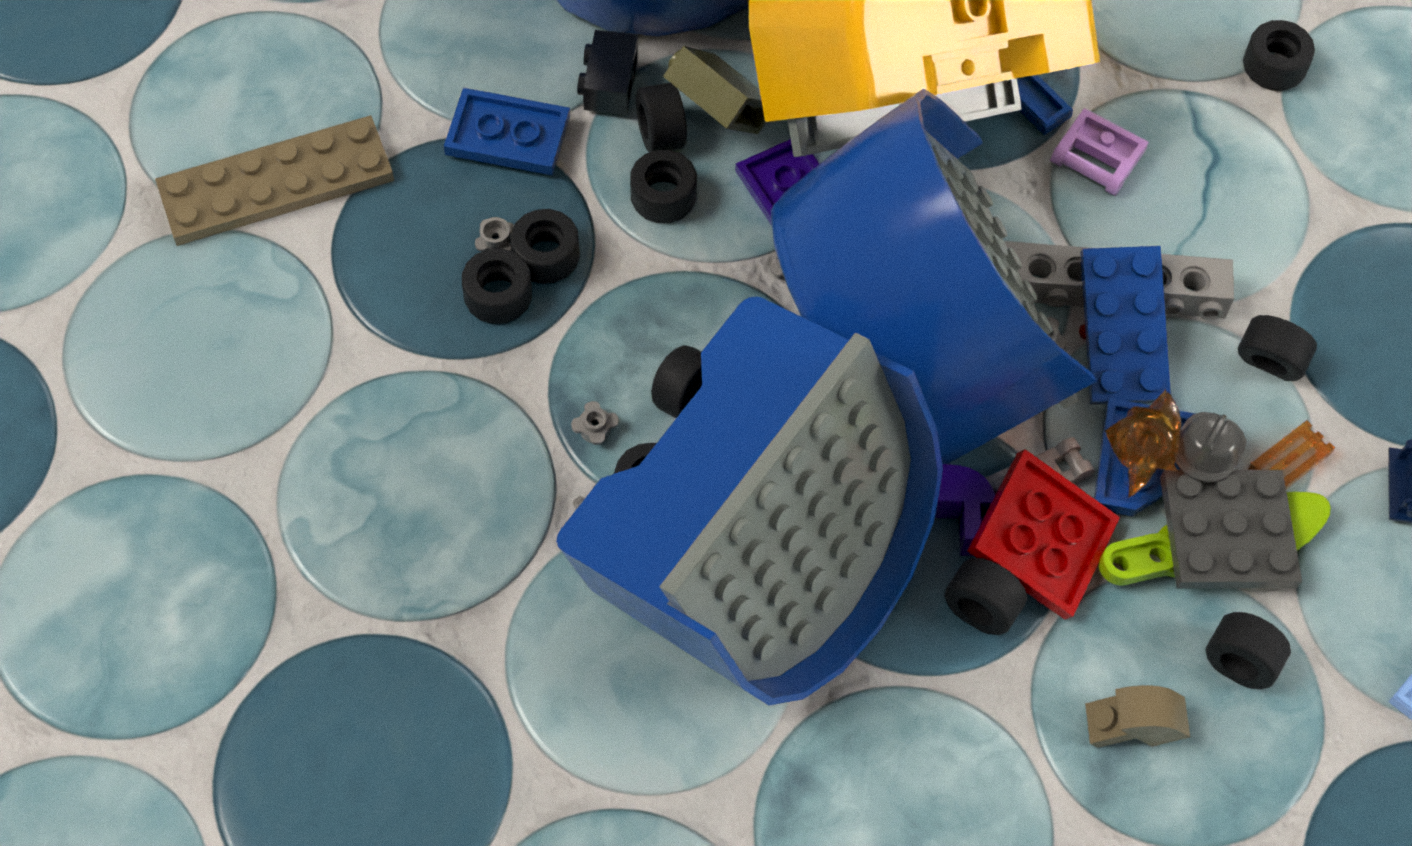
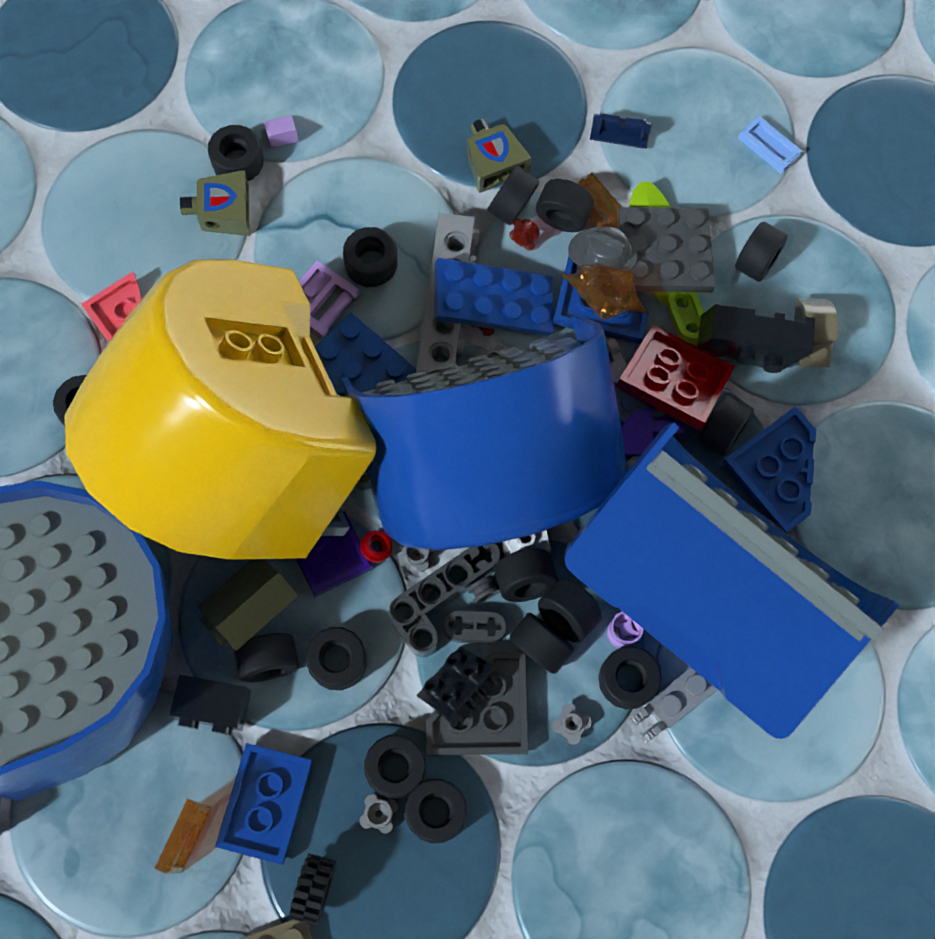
camera: 90 degrees left, 10 degrees up
(417, 169) = (312, 889): none -> black tyre
(472, 53) = (183, 837): none -> clear orange tile
(606, 332) = (496, 724): none -> dark grey plate
(632, 300) = (456, 683): none -> black hinge
(697, 323) = (475, 635): none -> dark grey beam
(724, 266) = (449, 591): none -> dark grey beam
(934, 668) = (778, 469): none -> blue plate
(1024, 185) = (361, 355): none -> blue plate
(1109, 622) = (754, 338): none -> black wedge
(1171, 181) = (370, 240): none -> black tyre
(1209, 46) = (221, 204): none -> olive torso
(1227, 367) = (525, 233): none -> clear red plate
(1271, 404) = (564, 205): none -> black tyre
(1323, 102) = (281, 131): none -> lavender slope
(1339, 327) = (494, 154): none -> olive torso

